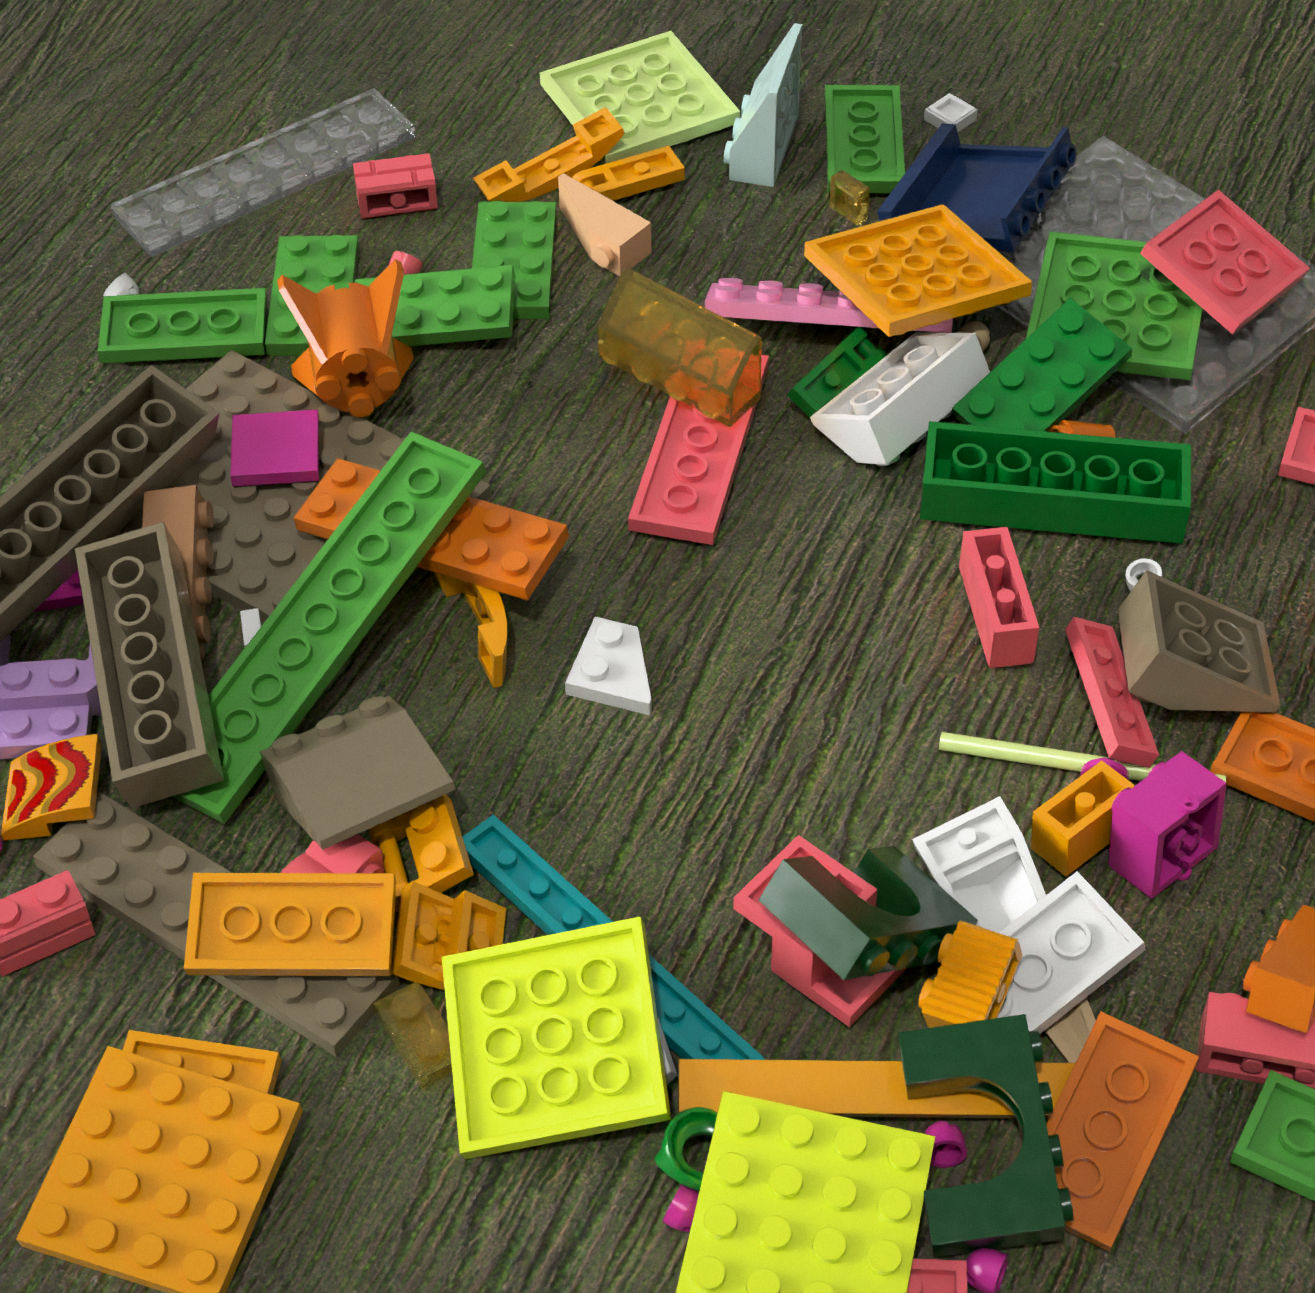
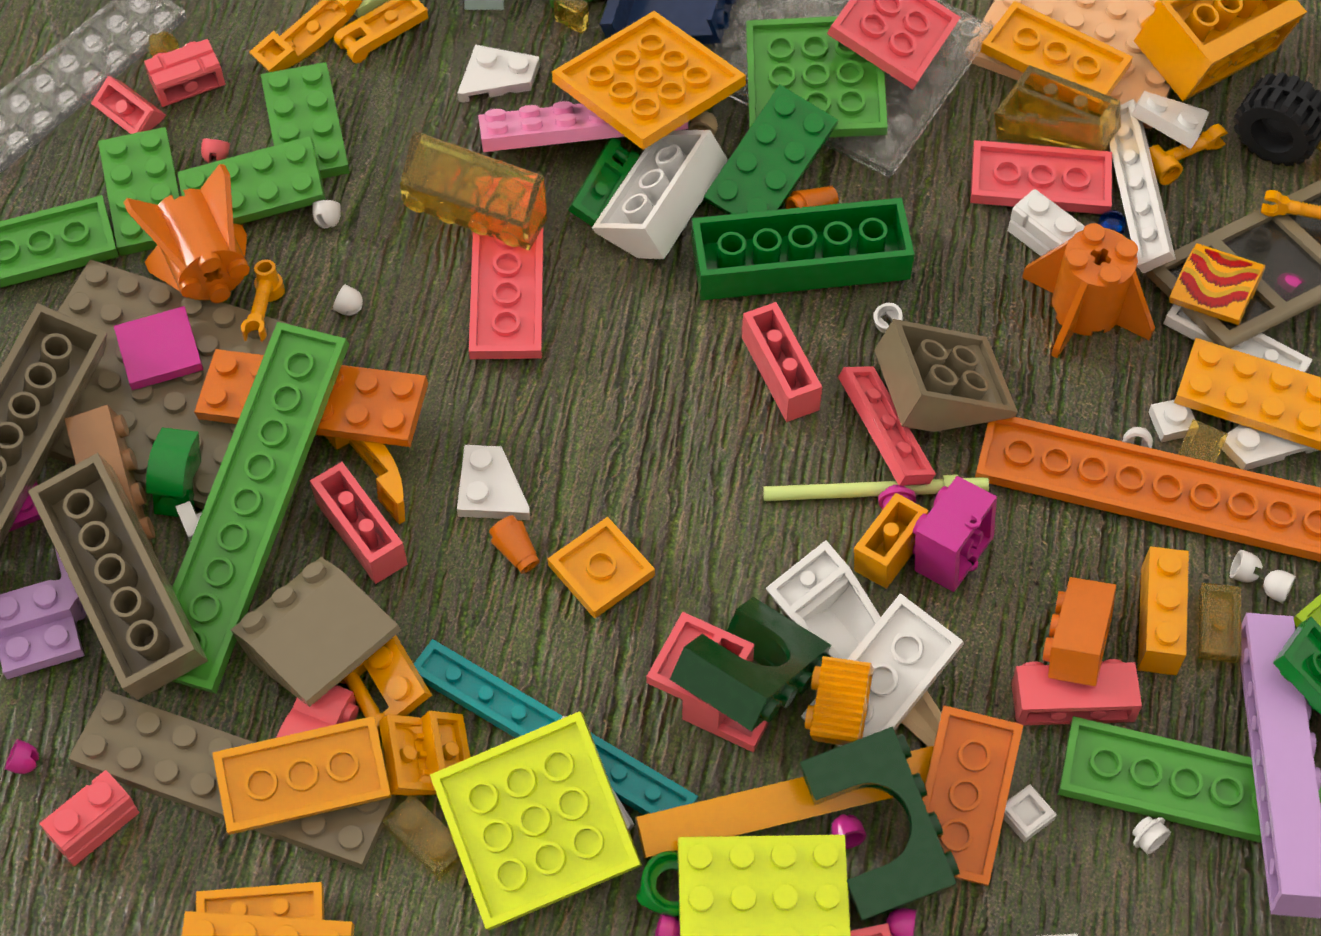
camera: 15 degrees left, 10 degrees up
(52, 787) = (64, 695): slope -> none
(246, 569) = (172, 469): none -> green brick
(321, 210) = (126, 107): none -> coral slope
(379, 150) = (162, 43): none -> clear yellow plate
(419, 414) = (268, 288): none -> light orange brick
(445, 671) = (358, 522): none -> coral brick
(505, 443) = (348, 301): none -> white hinge
(509, 350) = (326, 213): none -> white hinge
(606, 230) = (378, 82): light nougat slope -> none
(622, 732) = (514, 543): none -> orange cone
(718, 779) = (601, 567): none -> light orange plate
(747, 246) = (497, 73): none -> white wing
(1184, 1176) = (1028, 813): none -> white tile

